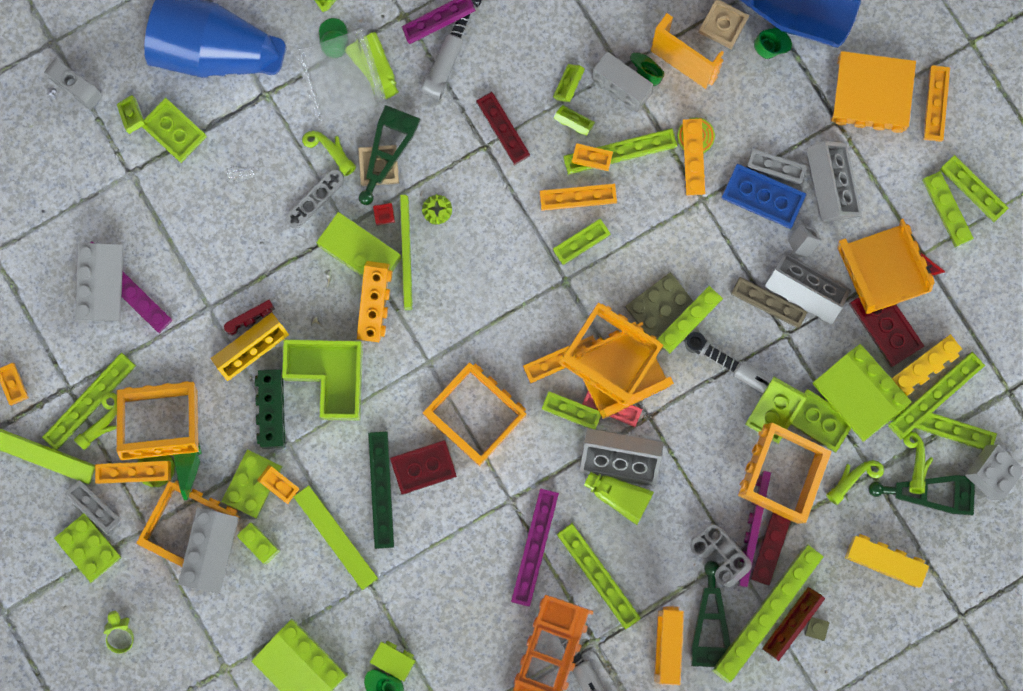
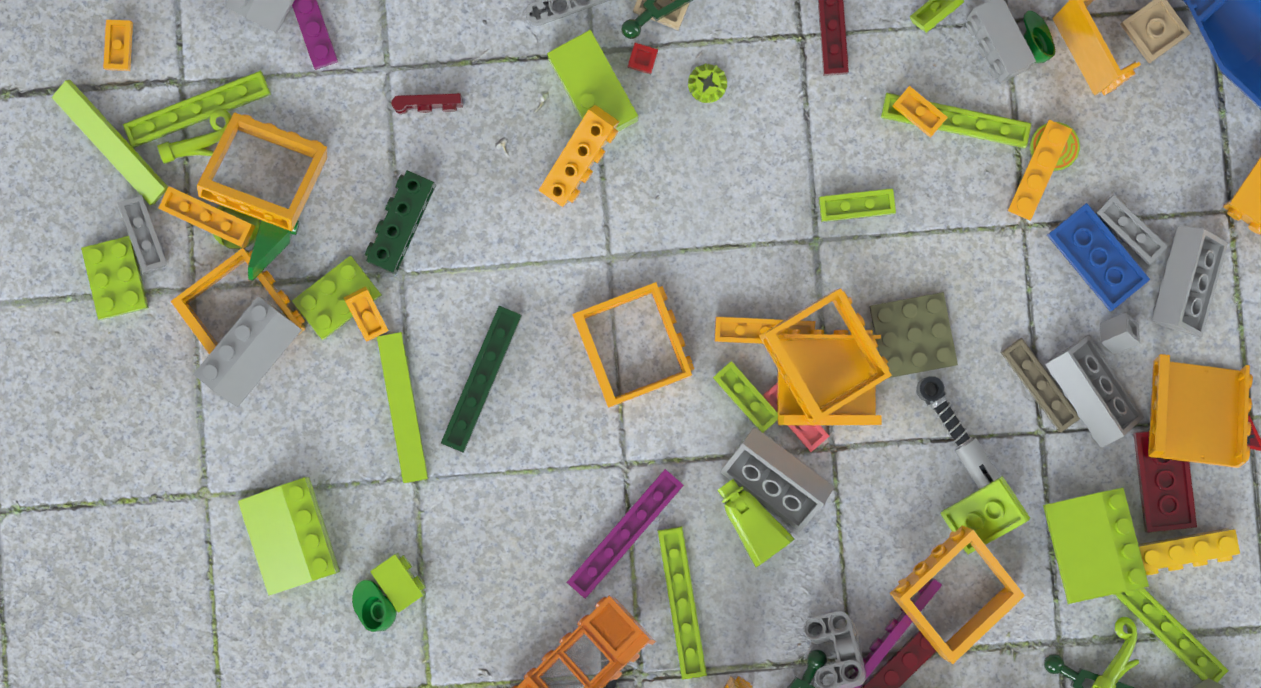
camera: 25 degrees right, 5 degrees up
(116, 622) = (105, 380): lime piece -> none
(249, 346) = (410, 137): yellow brick -> none
(258, 543) = (310, 370): lime brick -> none
(335, 366) = (499, 214): lime piece -> none
(406, 252) = (646, 116): lime tile -> none
(423, 467) = (542, 377): dark red plate -> none
(574, 120) = (920, 57): lime plate -> none
(578, 197) = (879, 150): light orange plate -> none
(689, 319) = (937, 359): lime plate -> none
(772, 43) = (1201, 80): green cap -> none
(821, 422) = (1030, 555): lime plate -> none
(848, 479) = (1027, 636): lime plant -> none
(936, 395) = (1181, 591): lime tile -> none

